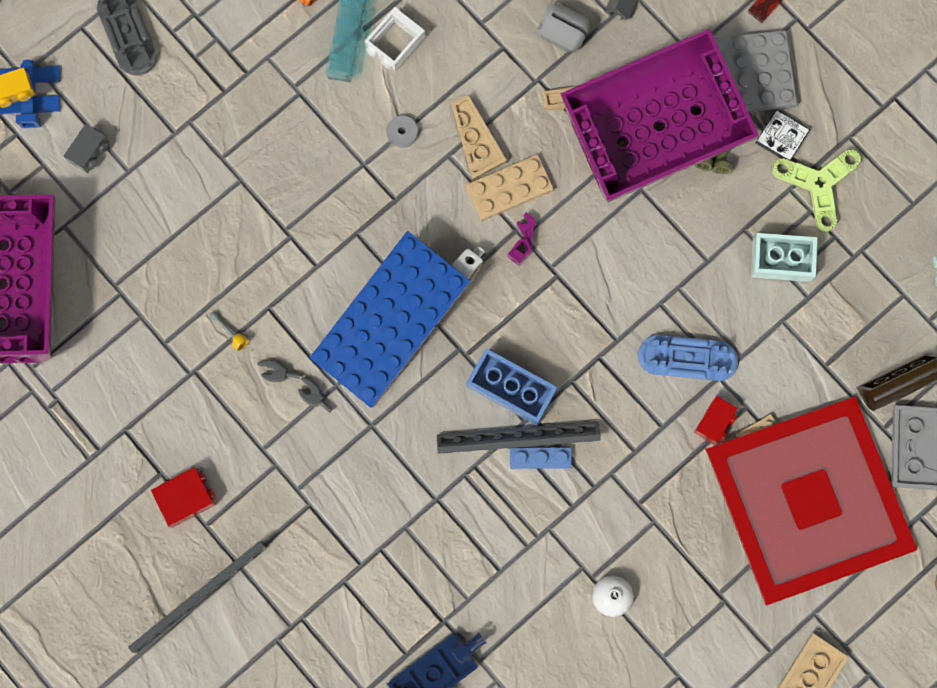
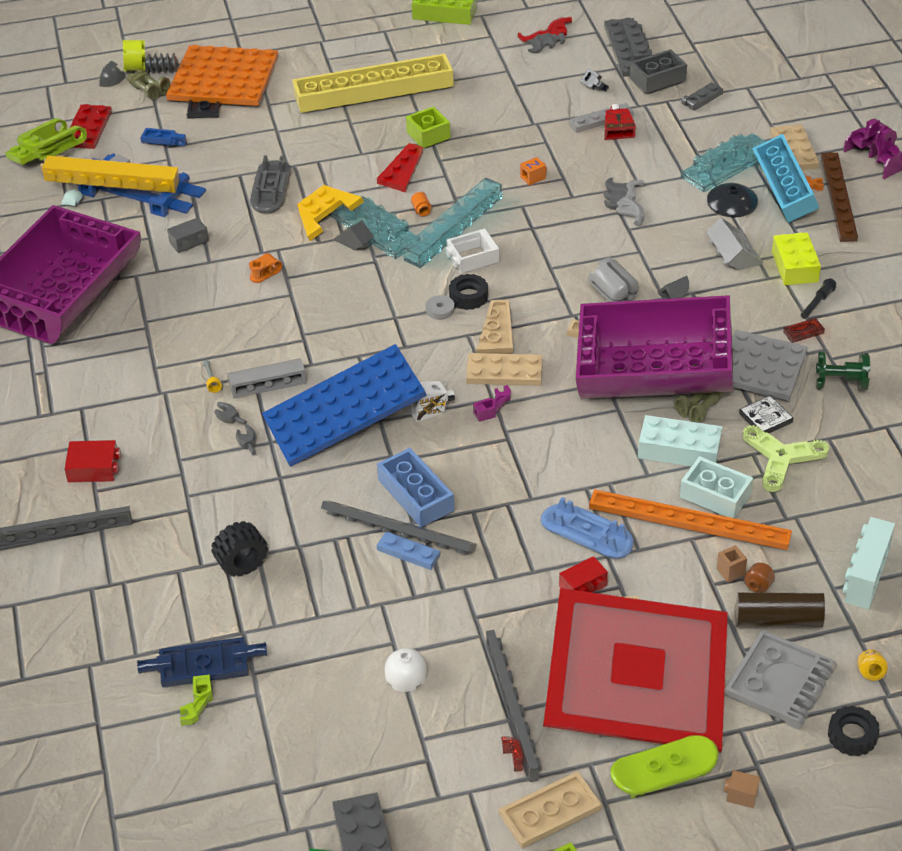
camera: 25 degrees right, 35 degrees down
(196, 156) = (265, 266): none -> orange piece
(200, 41) = (321, 204): none -> yellow wing
(261, 72) = (355, 236): none -> dark grey slope
(270, 42) = (388, 231): none -> clear light blue plate
(286, 308) = (266, 378): none -> light grey brick
(396, 544) = (239, 548): none -> black tyre
(414, 85) = (468, 301): none -> black tyre
(723, 212) = (678, 441): none -> light aqua brick
(730, 595) = (515, 711): none -> dark grey plate
(741, 631) = (511, 745): none -> clear red slope
(773, 302) = (690, 519): none -> orange plate
(838, 343) = (731, 563): none -> medium nougat brick
(851, 47) = (849, 371): none -> dark green piece
(867, 346) = (759, 576): none -> dark orange head
(882, 595) = (664, 765): none -> lime piece

